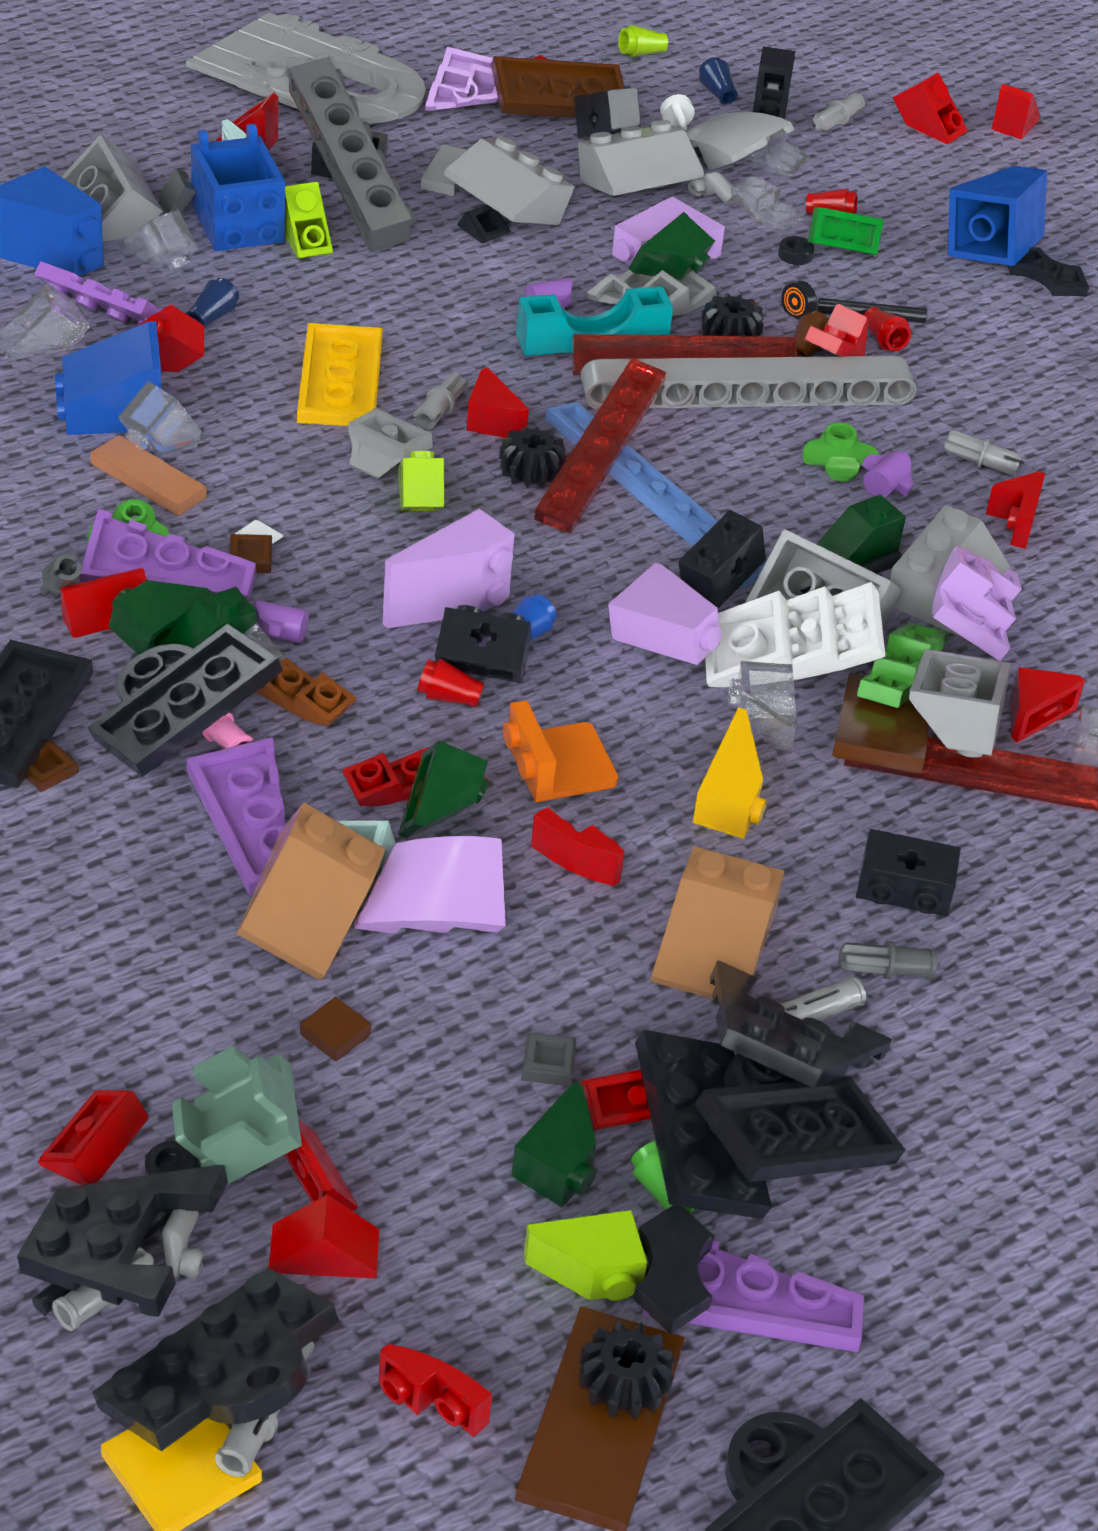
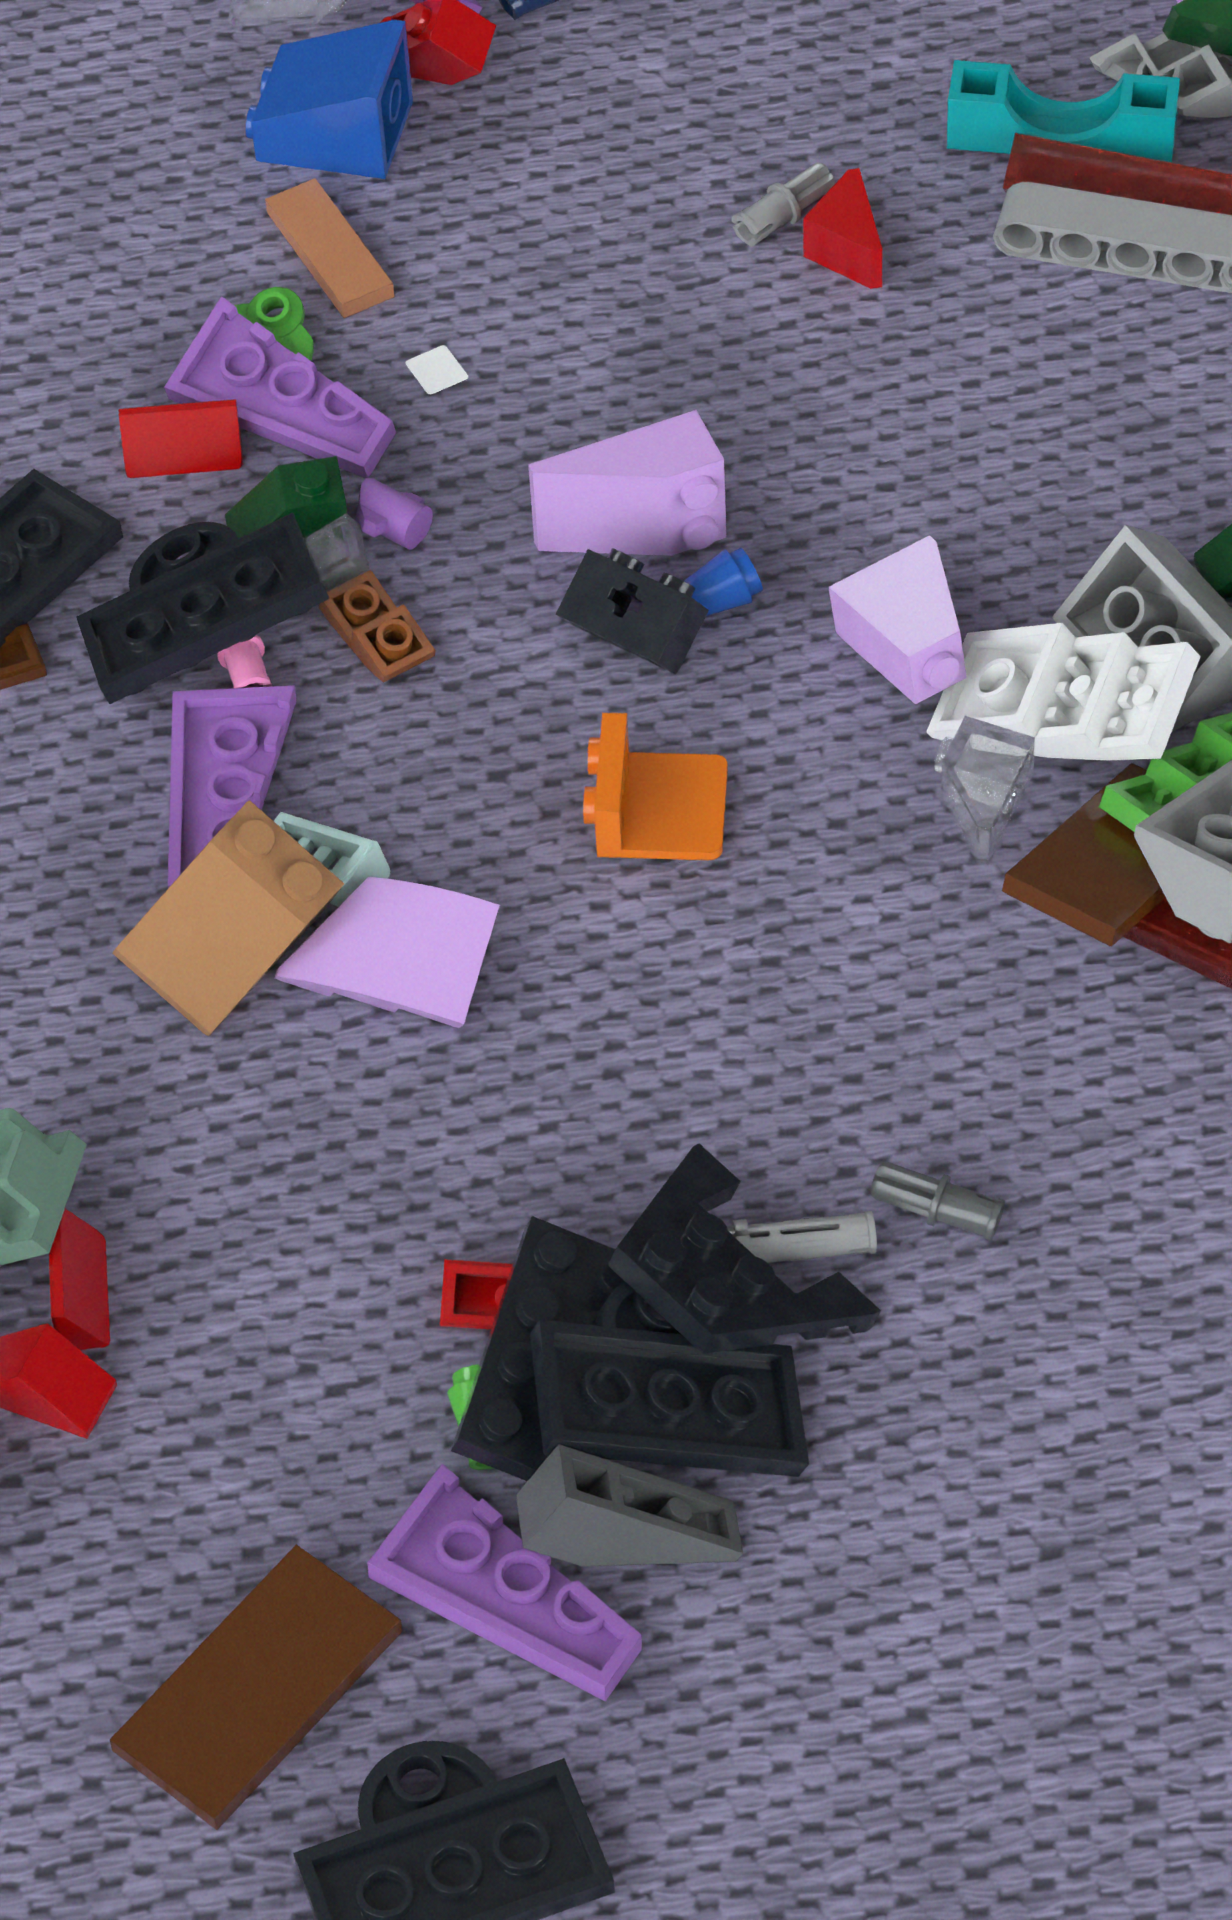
camera: 30 degrees right, 10 degrees up
(60, 574) = (125, 389): dark grey axle -> none
(151, 612) = (224, 465): dark green slope -> none
(159, 422) = (366, 175): clear slope -> none
(253, 548) = (409, 397): reddish brown tile -> none
(335, 1028) = (188, 1107): reddish brown tile -> none
(339, 373) = (667, 133): yellow tile -> none
(380, 782) = (414, 781): red slope -> none
(383, 441) = (664, 259): light grey slope -> none
(421, 482) = (679, 337): lime slope -> none
(422, 1379) = (71, 1588): red slope -> none
(443, 787) = (472, 813): dark green slope -> none
(448, 684) = (565, 656): red cone -> none
(532, 456) = (861, 324): black gear -> none
(549, 1059) = (429, 1218): dark grey tile -> none
(558, 1150) = (372, 1338): dark green slope -> none
(561, 288) = (1035, 51): medium lavender piece -> none
(583, 852) = (610, 941): red slope -> none
(589, 1254) = (340, 1484): lime slope -> none
(600, 446) = (964, 324): clear red plate -> none
(626, 1370) = (292, 1638): black gear -> none
(644, 482) = (1019, 409): medium blue tile -> none
(673, 1287) = (404, 1555): black tile -> none
(717, 915) = (737, 1087): medium nougat slope -> none
(724, 558) = (1031, 550): black brick -> none
(733, 783) = (861, 899): yellow slope -> none
(804, 1217) = (619, 1515): none -> dark grey slope
(908, 872) = (1034, 1084): black brick -> none

